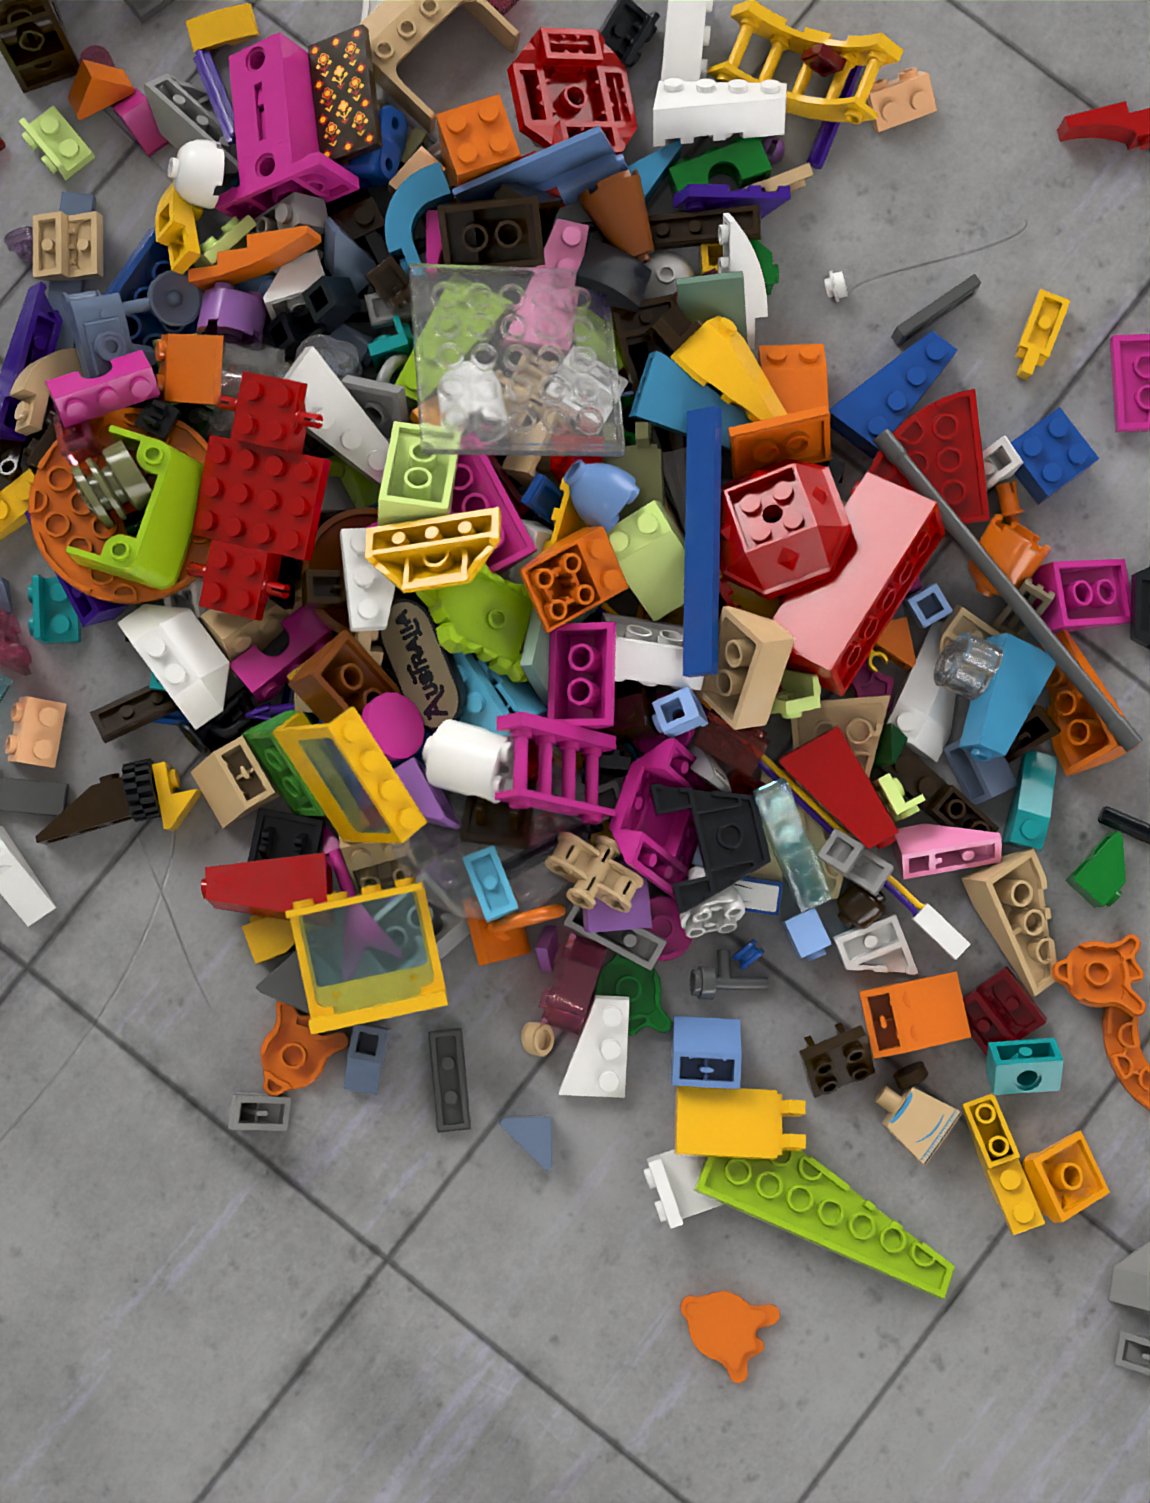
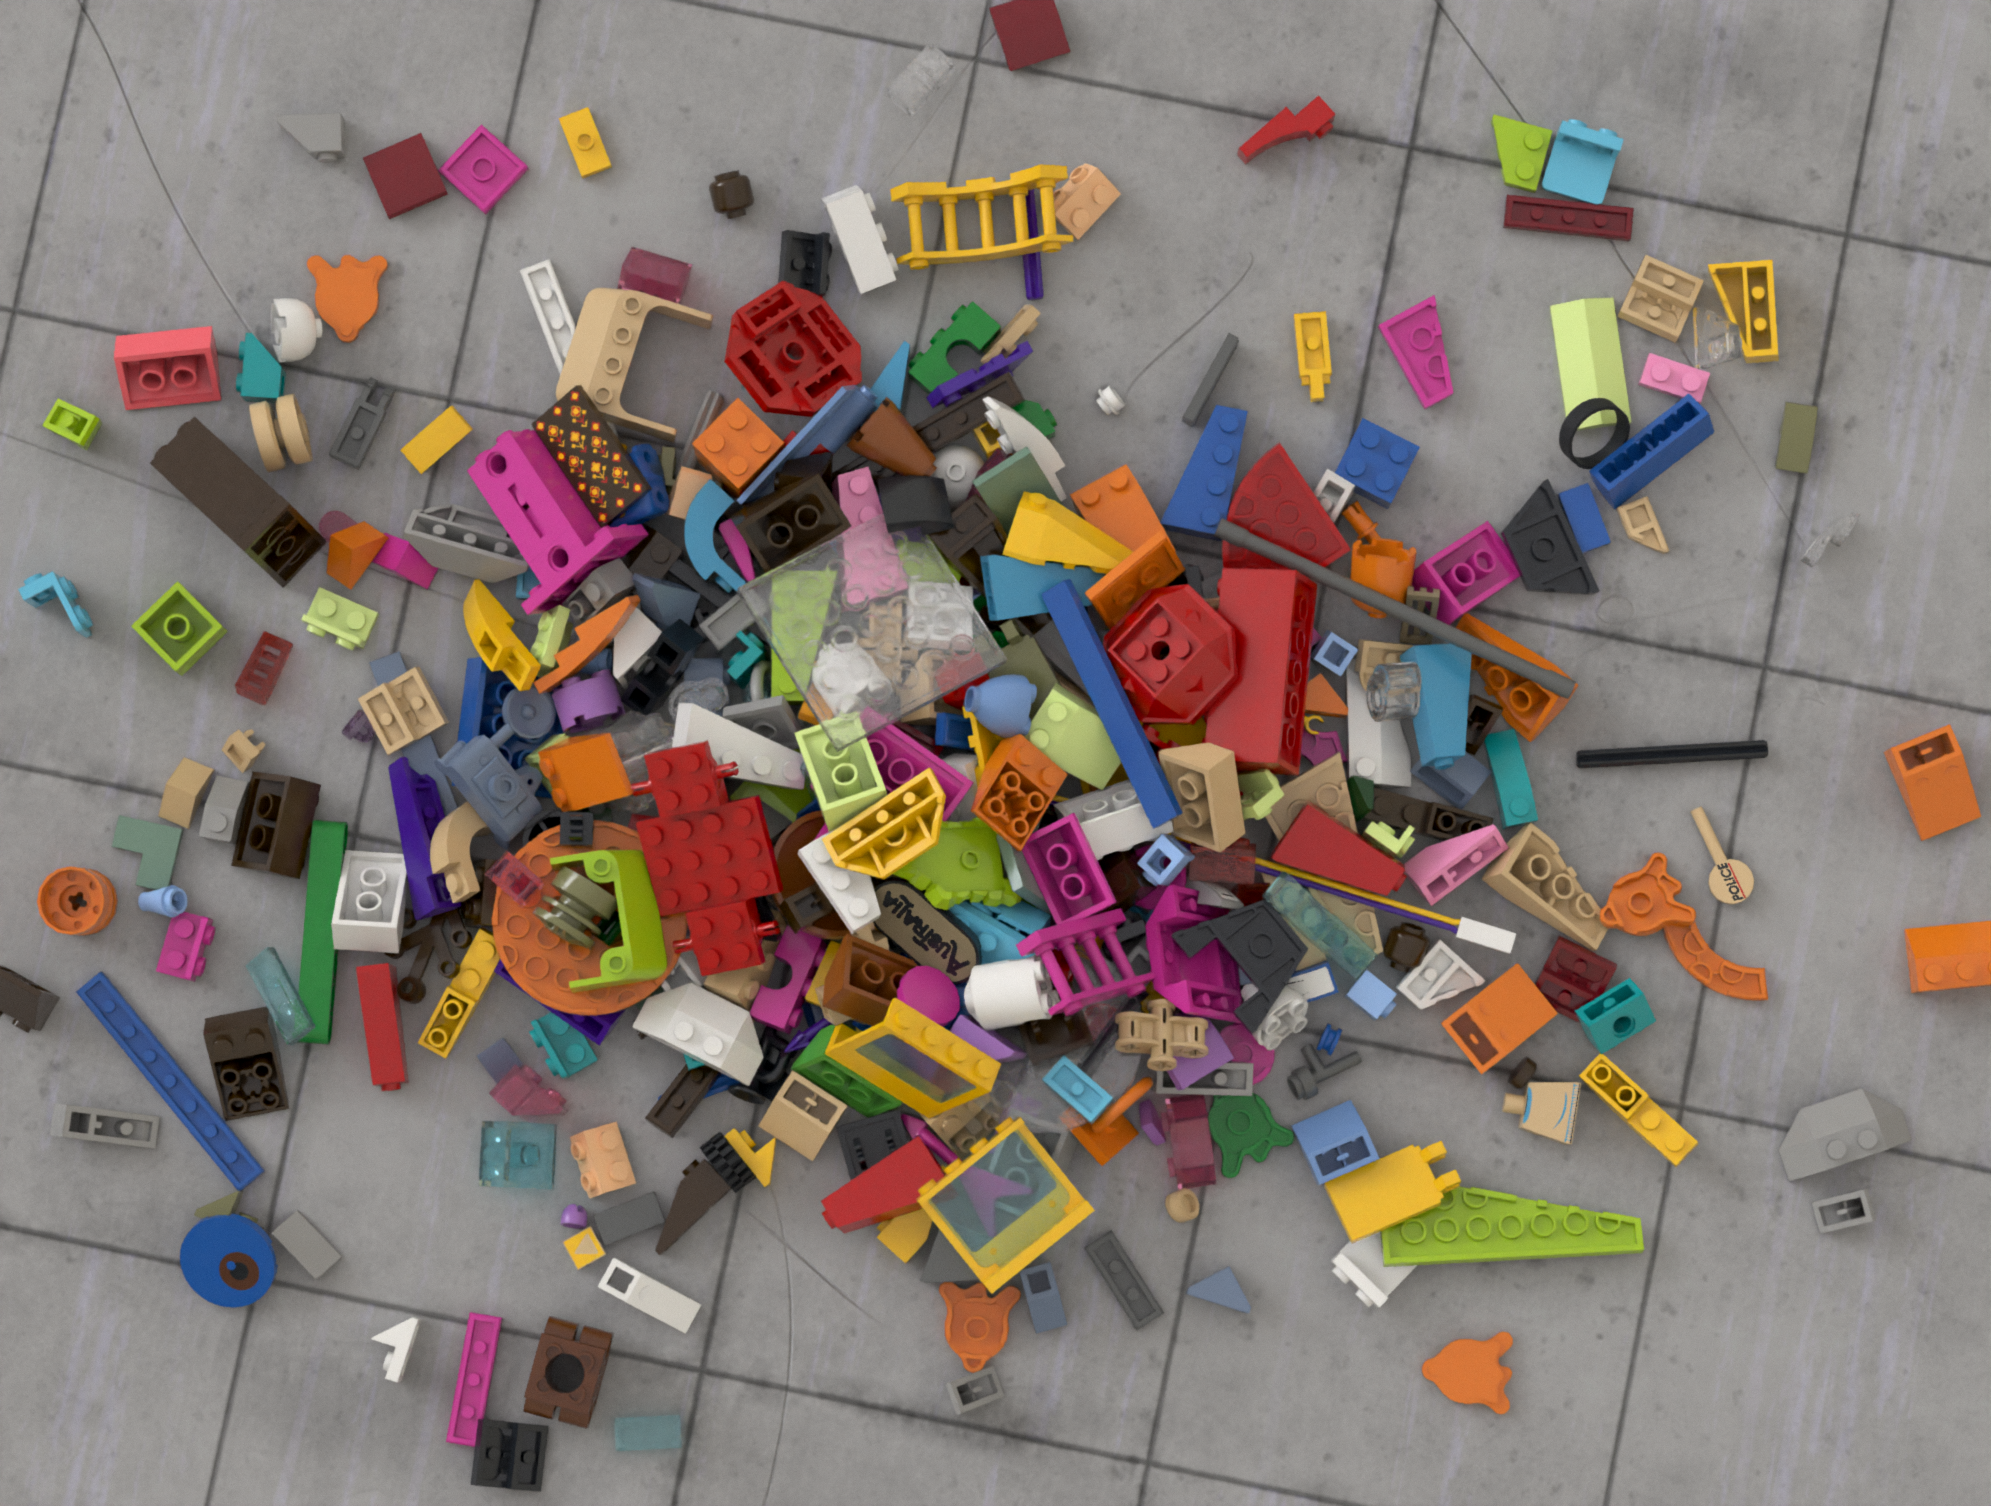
camera: 25 degrees left, 0 degrees up
(124, 385) = (507, 847): dark pink arch -> none
(198, 172) = (498, 590): white cylinder -> none
(216, 93) = (468, 506): dark purple axle -> none
(390, 283) = (720, 606): dark brown bracket -> none
(601, 1052) = (1244, 1188): white wing -> none
(672, 330) = (992, 527): dark brown panel -> none
(718, 109) = (926, 298): white wedge -> none
(779, 150) = (997, 302): medium lavender hinge -> none
(823, 60) = (997, 204): dark red tile -> none
(837, 1060) = (1451, 1092): dark brown plate -> none
(855, 862) = (1381, 912): light grey slope -> none
(1064, 1178) = (1698, 1094): light orange slope -> none
(1101, 872) = (1601, 812): green slope -> none

